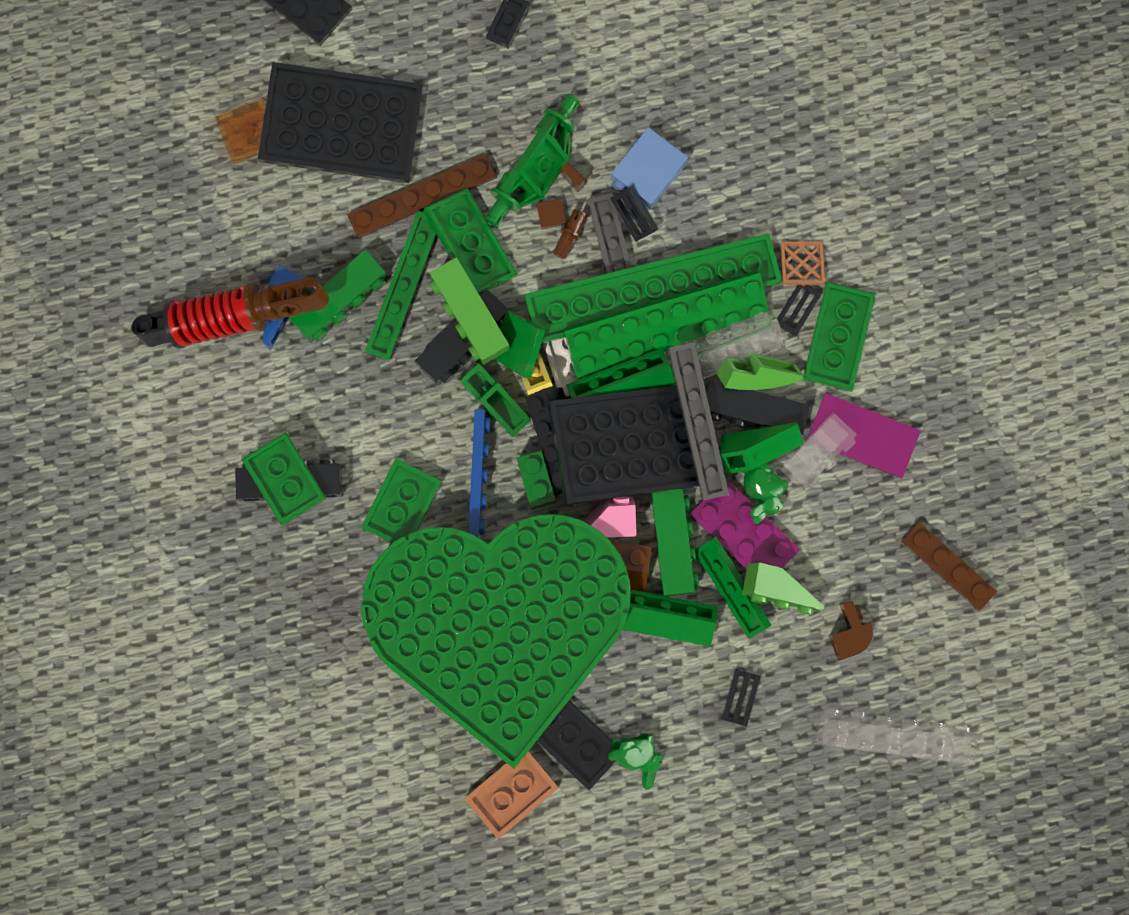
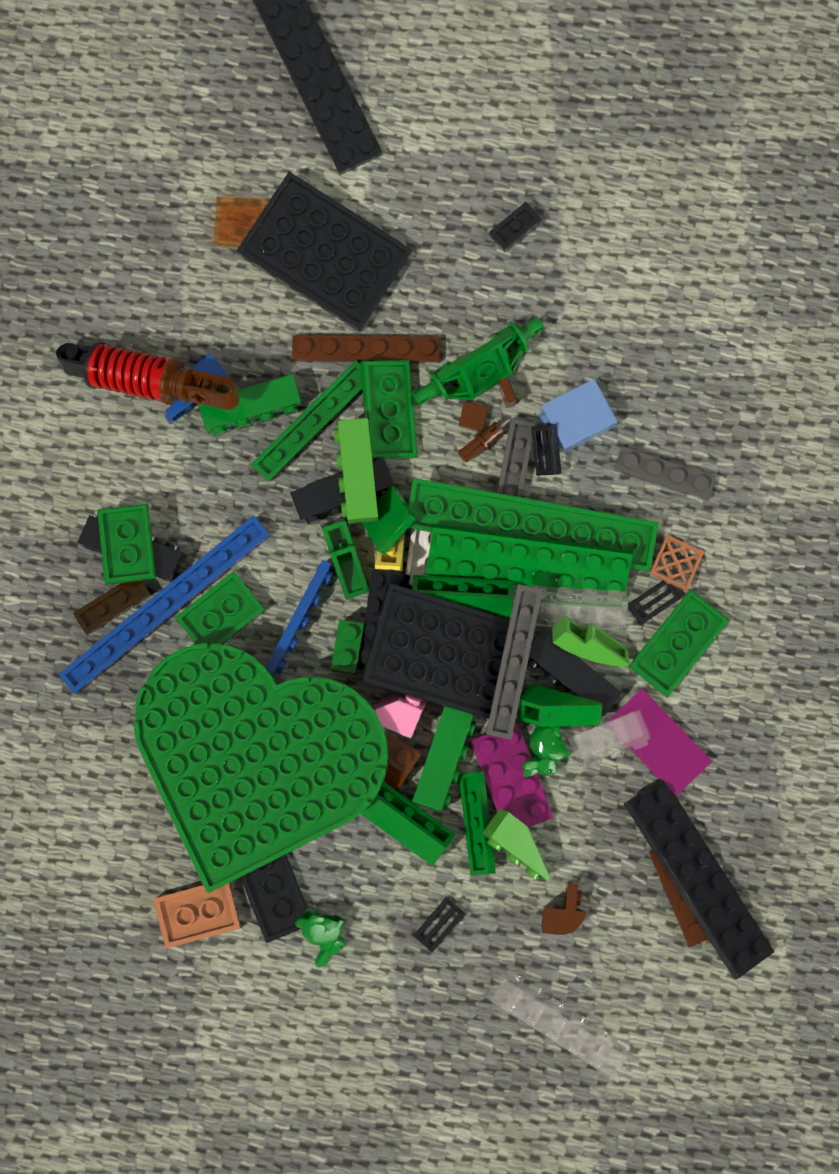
camera: 25 degrees right, 0 degrees up
(295, 543) = (111, 605): none -> dark brown plate
(344, 520) = (164, 605): none -> blue plate
(752, 186) = (664, 473): none -> dark grey plate
(959, 543) = (699, 879): none -> black plate

